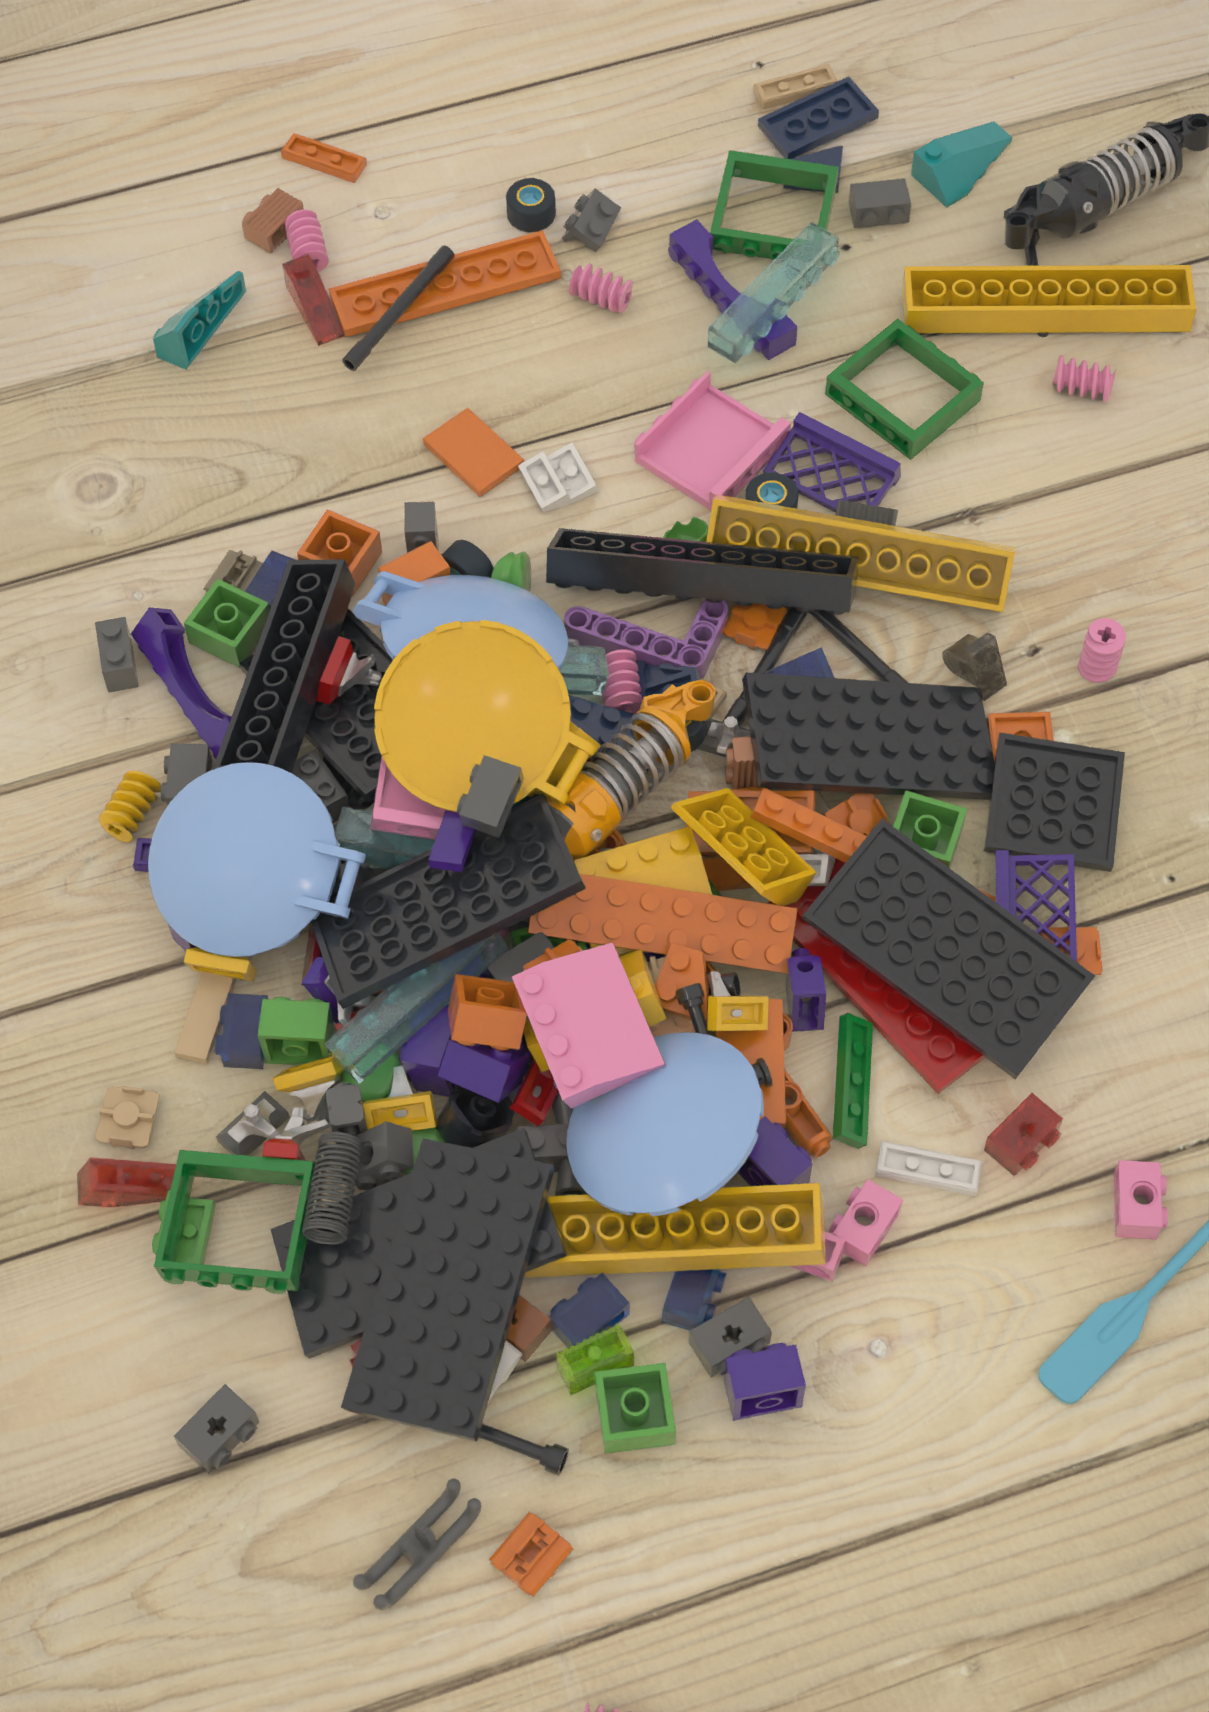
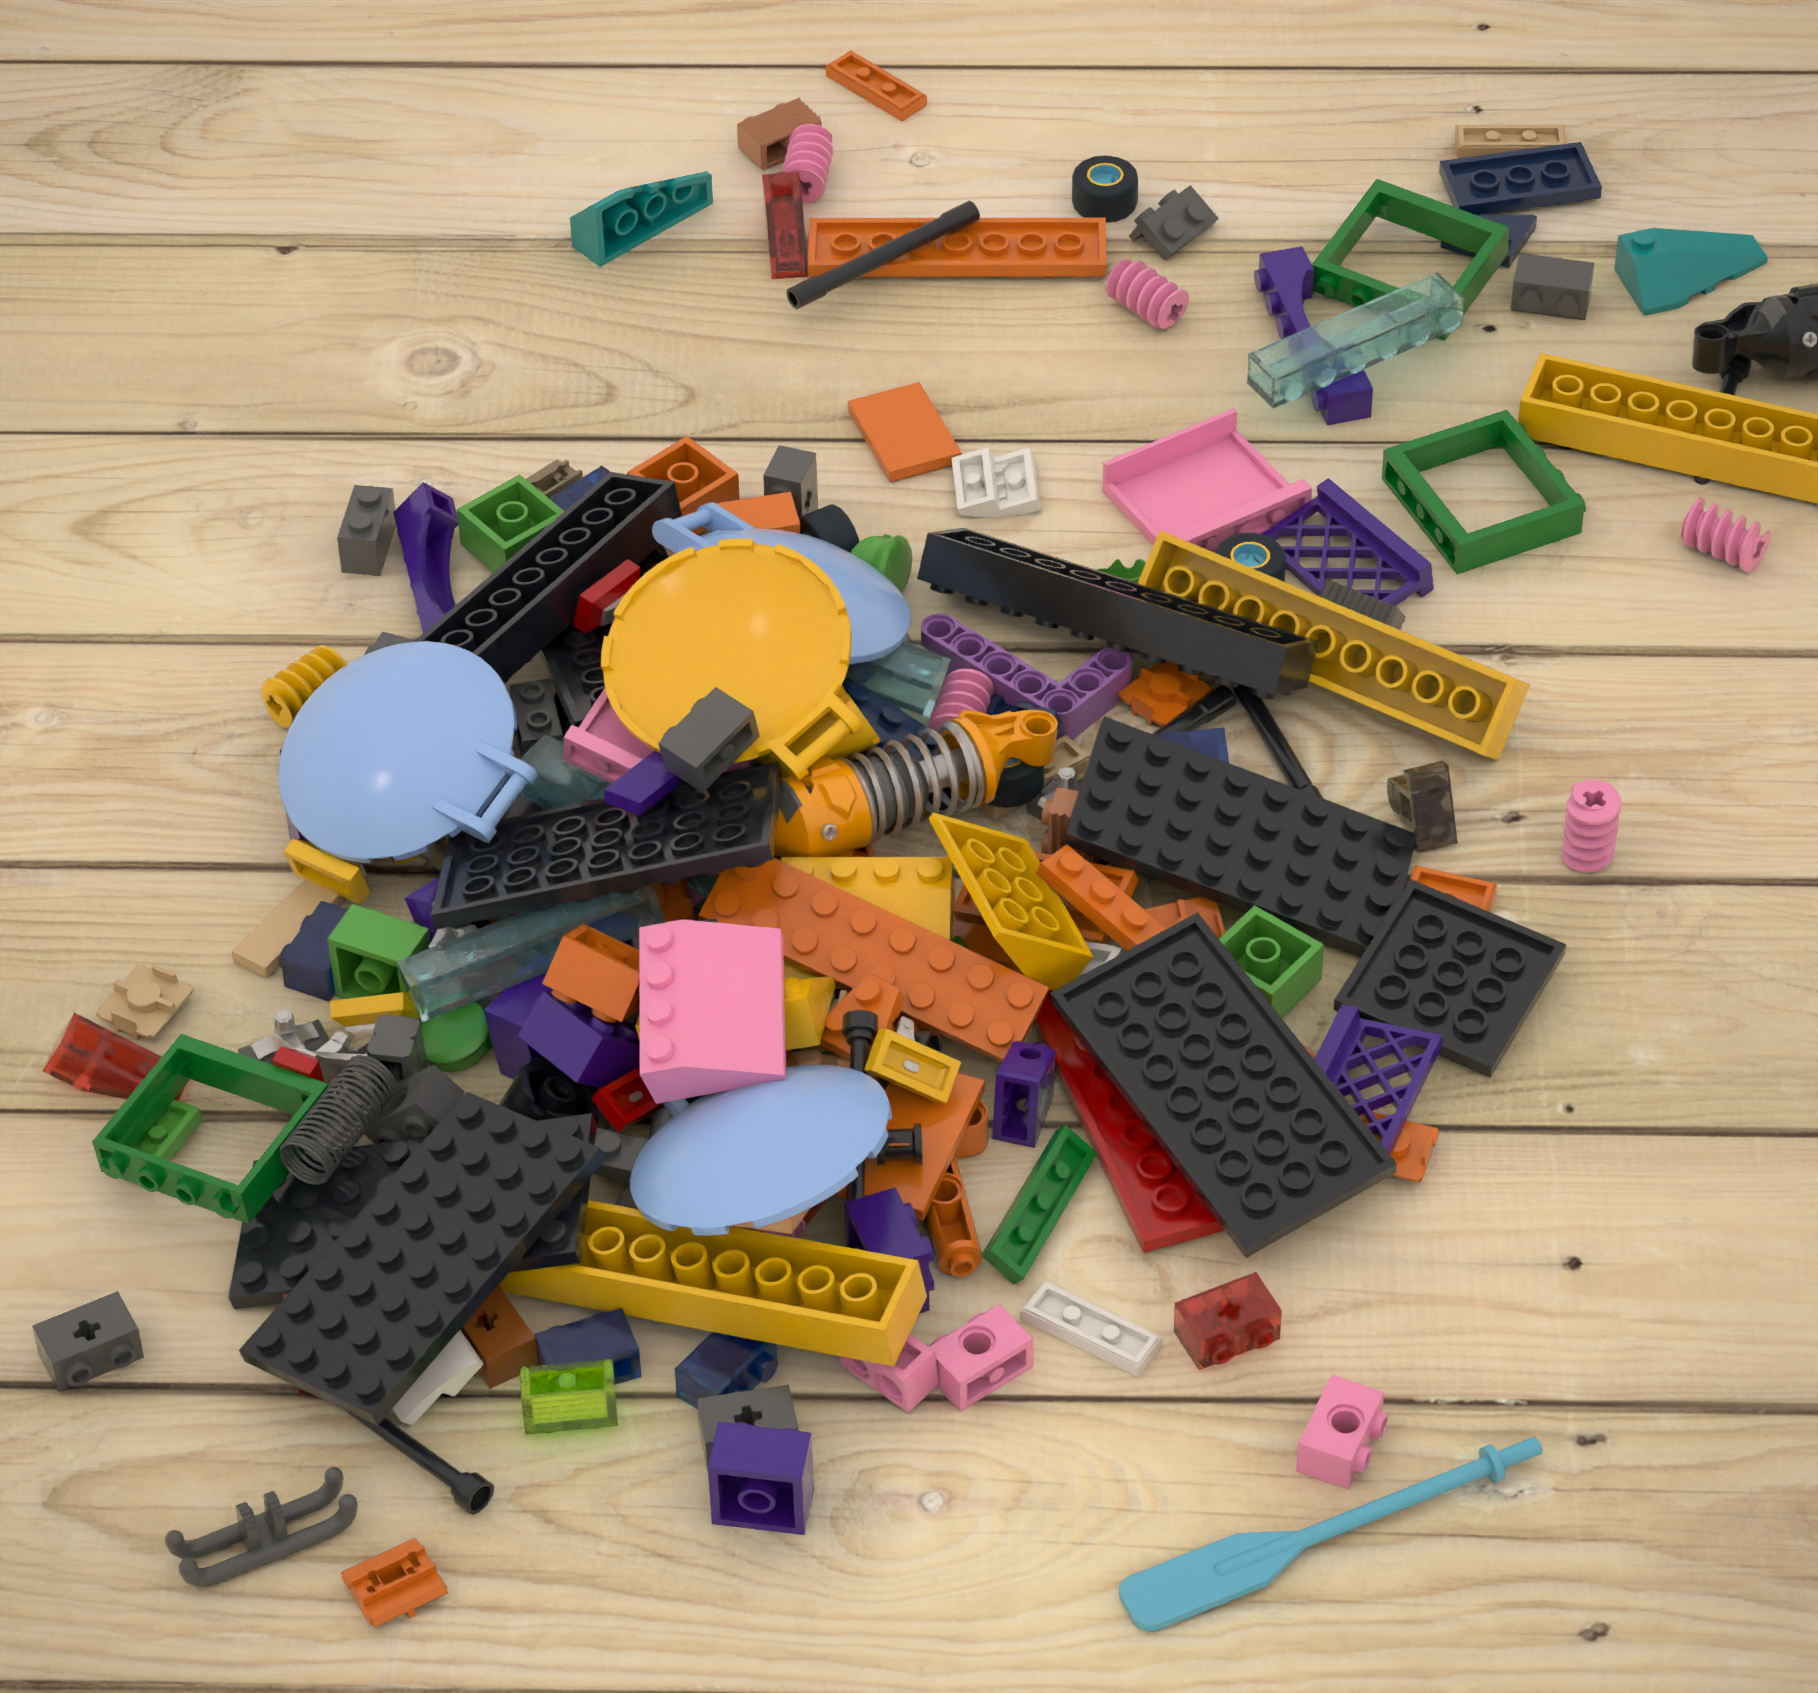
camera: 20 degrees right, 15 degrees down
(402, 1106) = (470, 1069): yellow piece -> none
(635, 1408) = (591, 1461): bright green brick -> none

